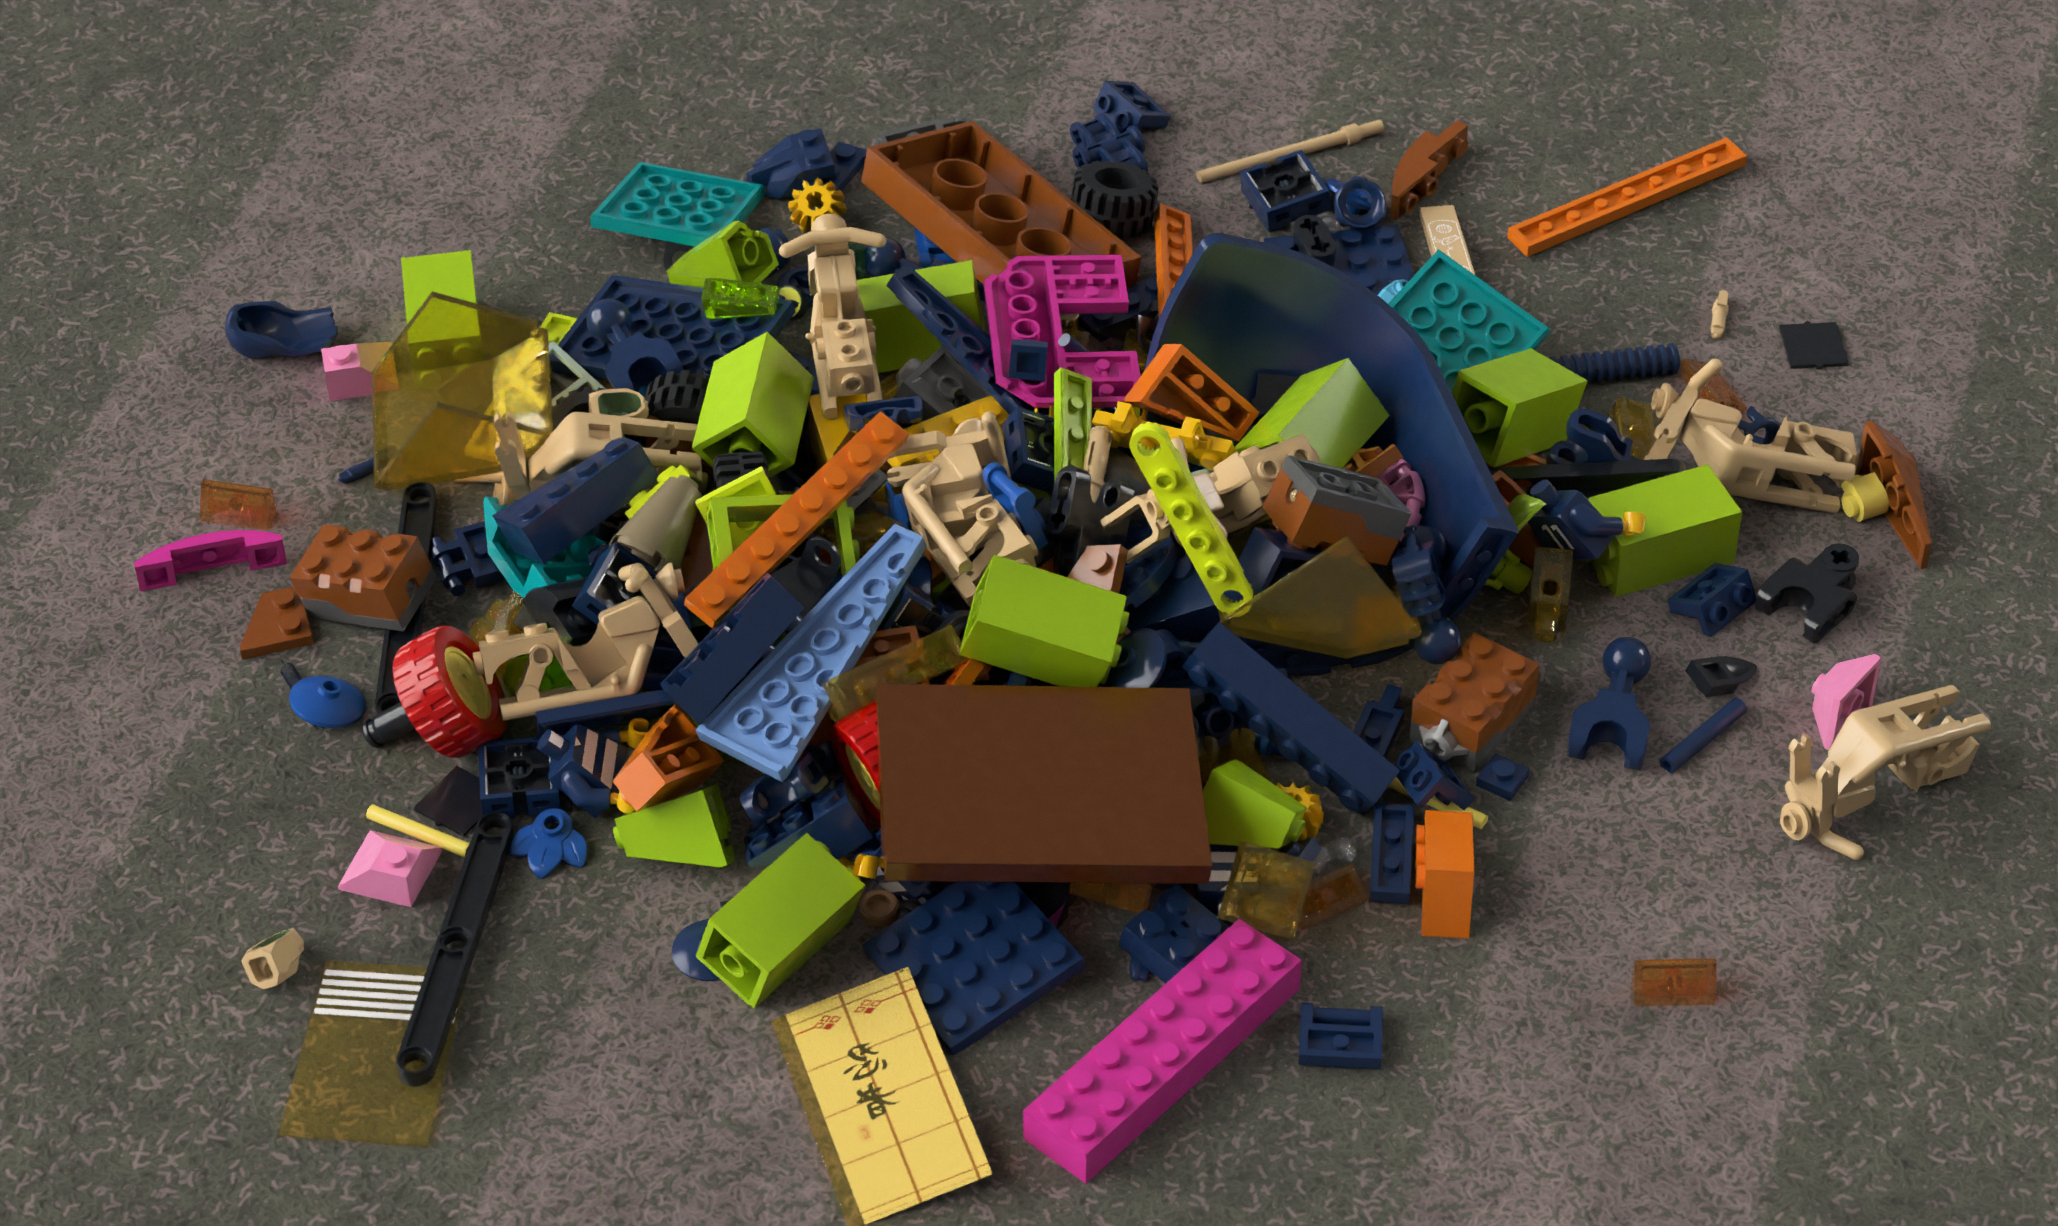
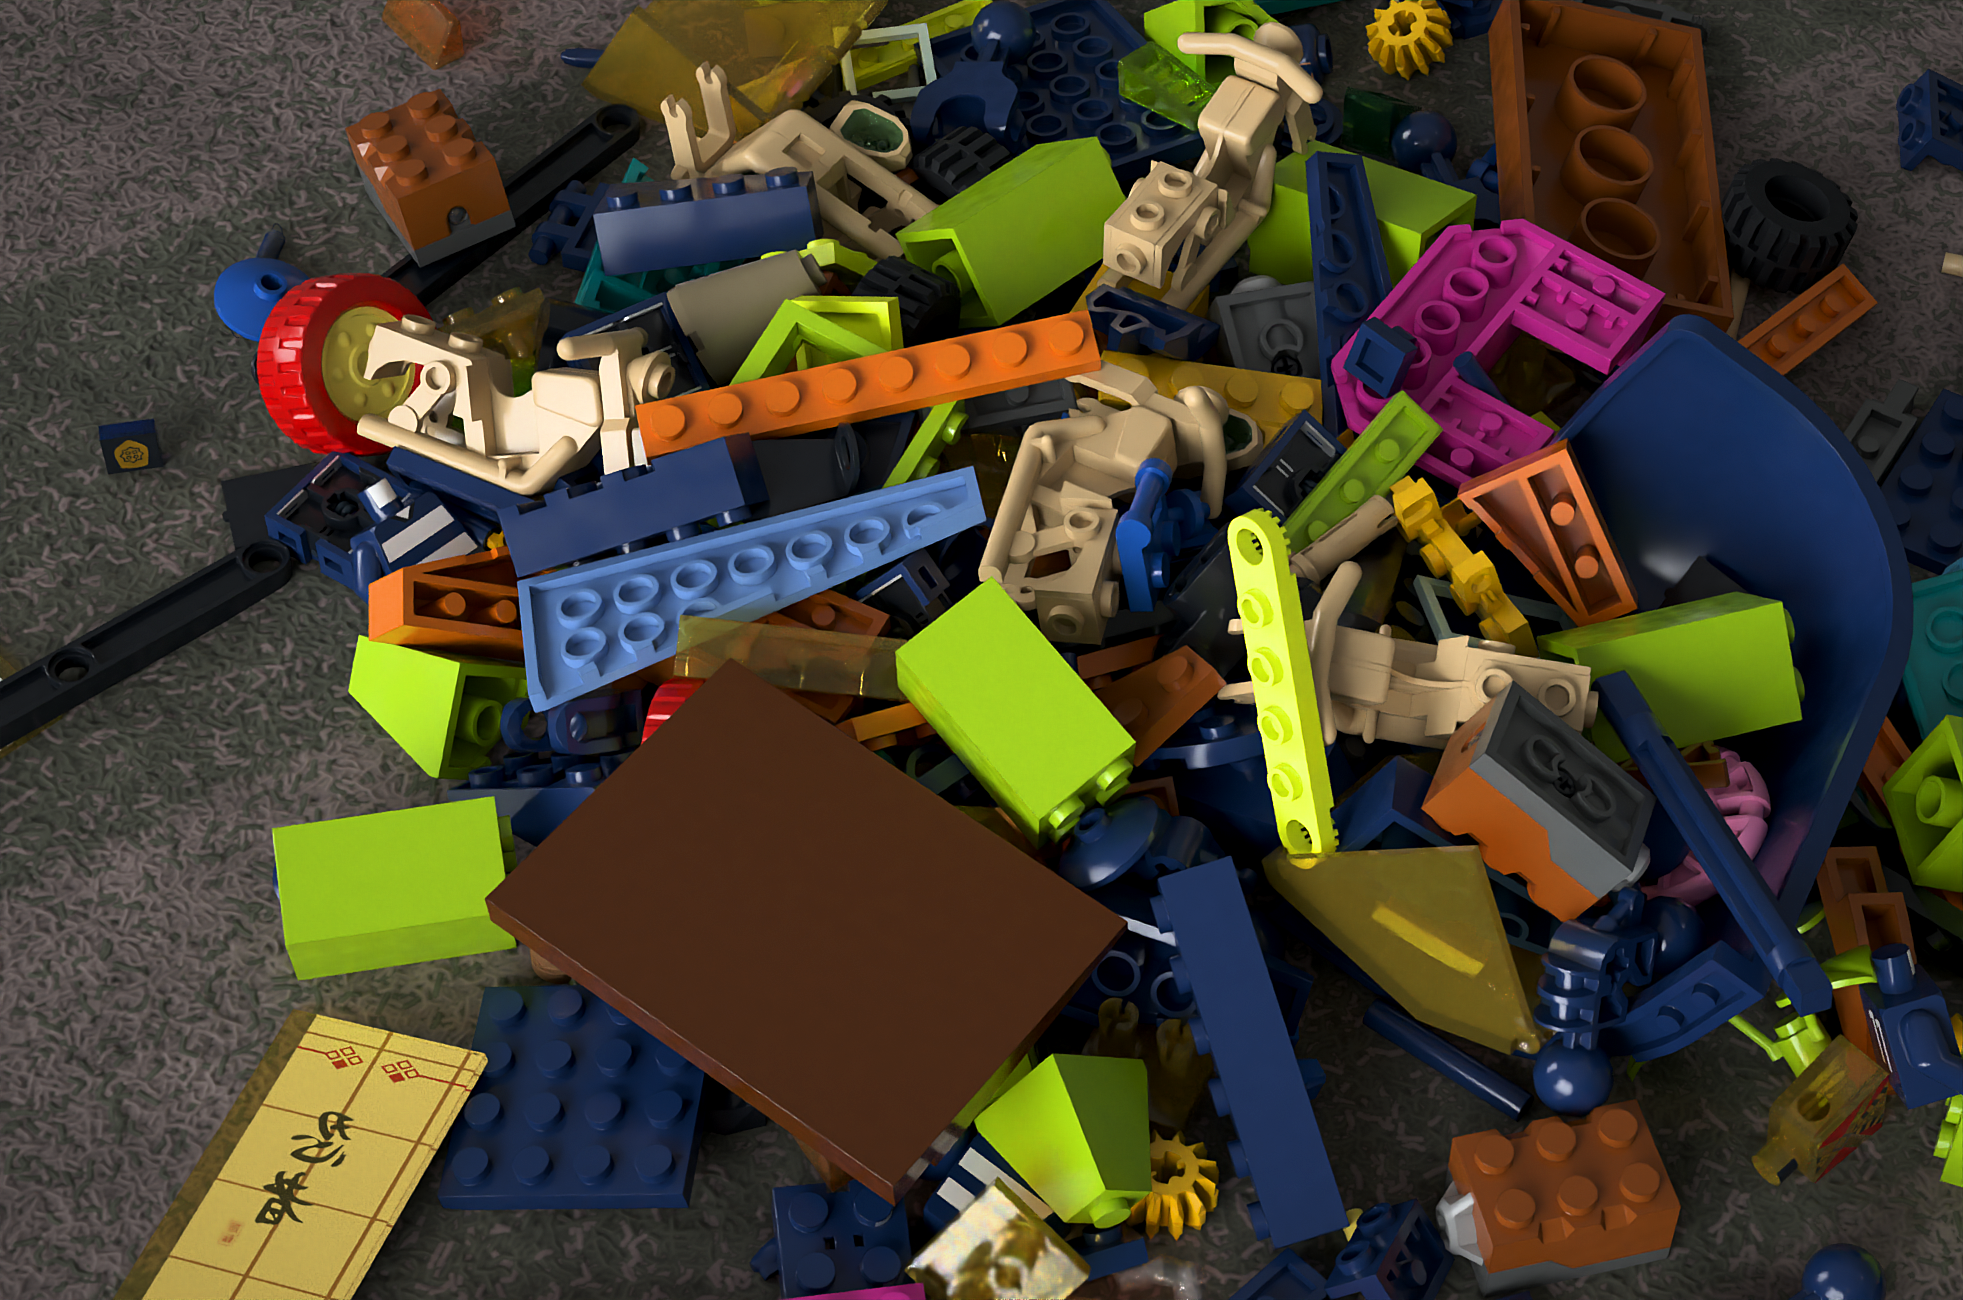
camera: 40 degrees right, 5 degrees up
(209, 551) = (279, 43): dark pink slope -> none
(276, 624) = (315, 185): dark orange wing -> none
(346, 817) = (130, 446): none -> tile
(390, 868) = (122, 537): bright pink slope -> none
(417, 830) = (192, 507): light yellow bar -> none
(550, 846) = (297, 623): blue plate -> none
(1101, 141) = (1857, 157): dark blue axle -> none
(1353, 681) = (1448, 1059): none -> dark blue piece
(1358, 459) = (1714, 844): none -> dark blue piece
(1381, 720) = (1400, 1146): dark blue hinge -> none

